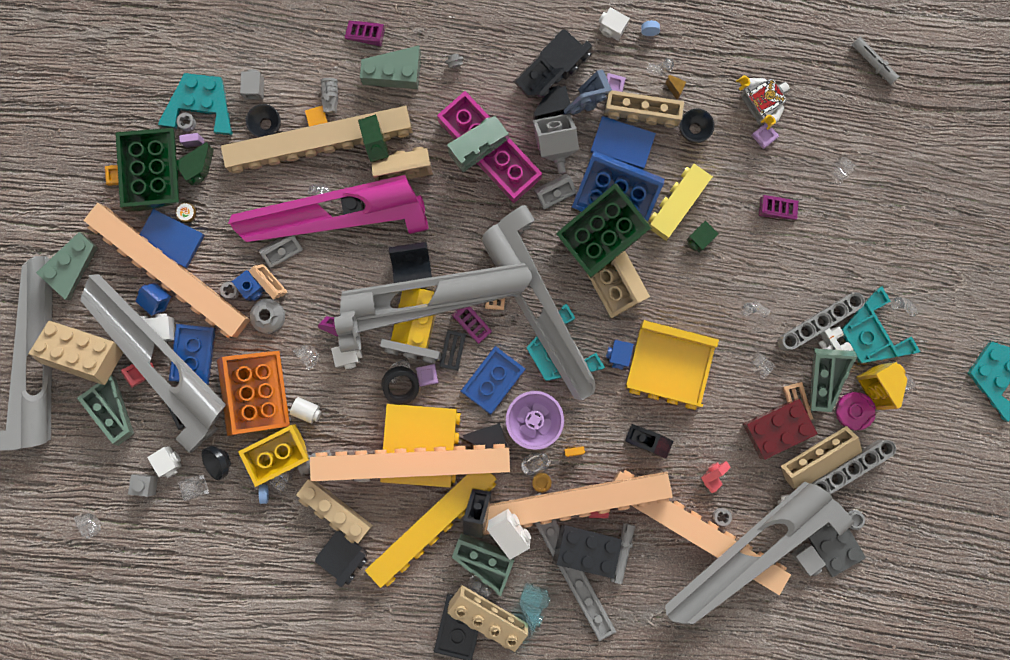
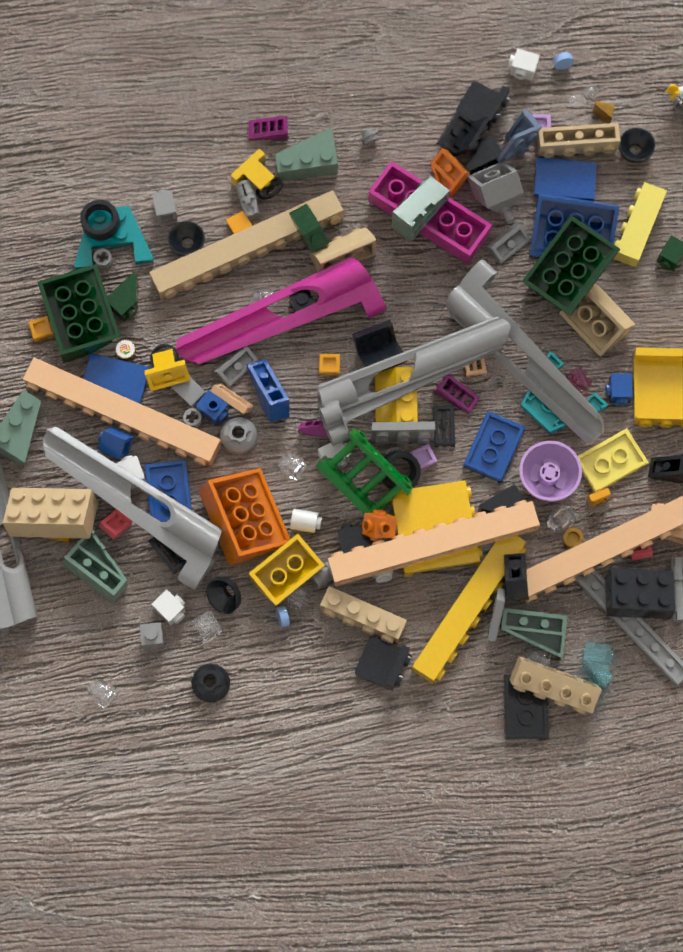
camera: 15 degrees left, 10 degrees down
(175, 79) = (106, 233): none -> black tyre
(191, 140) = (114, 274): lavender tile -> none
(195, 533) = (214, 693): none -> black piece
(212, 242) = (166, 370): none -> yellow piece
(228, 259) = (189, 392): none -> light grey slope
(302, 281) = (269, 391): none -> blue slope
(342, 75) = (257, 174): none -> yellow piece
(345, 440) = (352, 537): none -> black slope
(351, 396) = (344, 481): none -> green fence
(364, 268) = (329, 365): none -> light orange tile
(365, 435) = (379, 525): none -> orange brick
(450, 544) = (496, 614): none -> light grey tile
(509, 534) = (555, 589): white brick -> none
(517, 112) = (449, 171): none -> orange wing
(583, 337) = (578, 379): none -> clear pink tile
(594, 418) = (611, 461): none -> light yellow tile

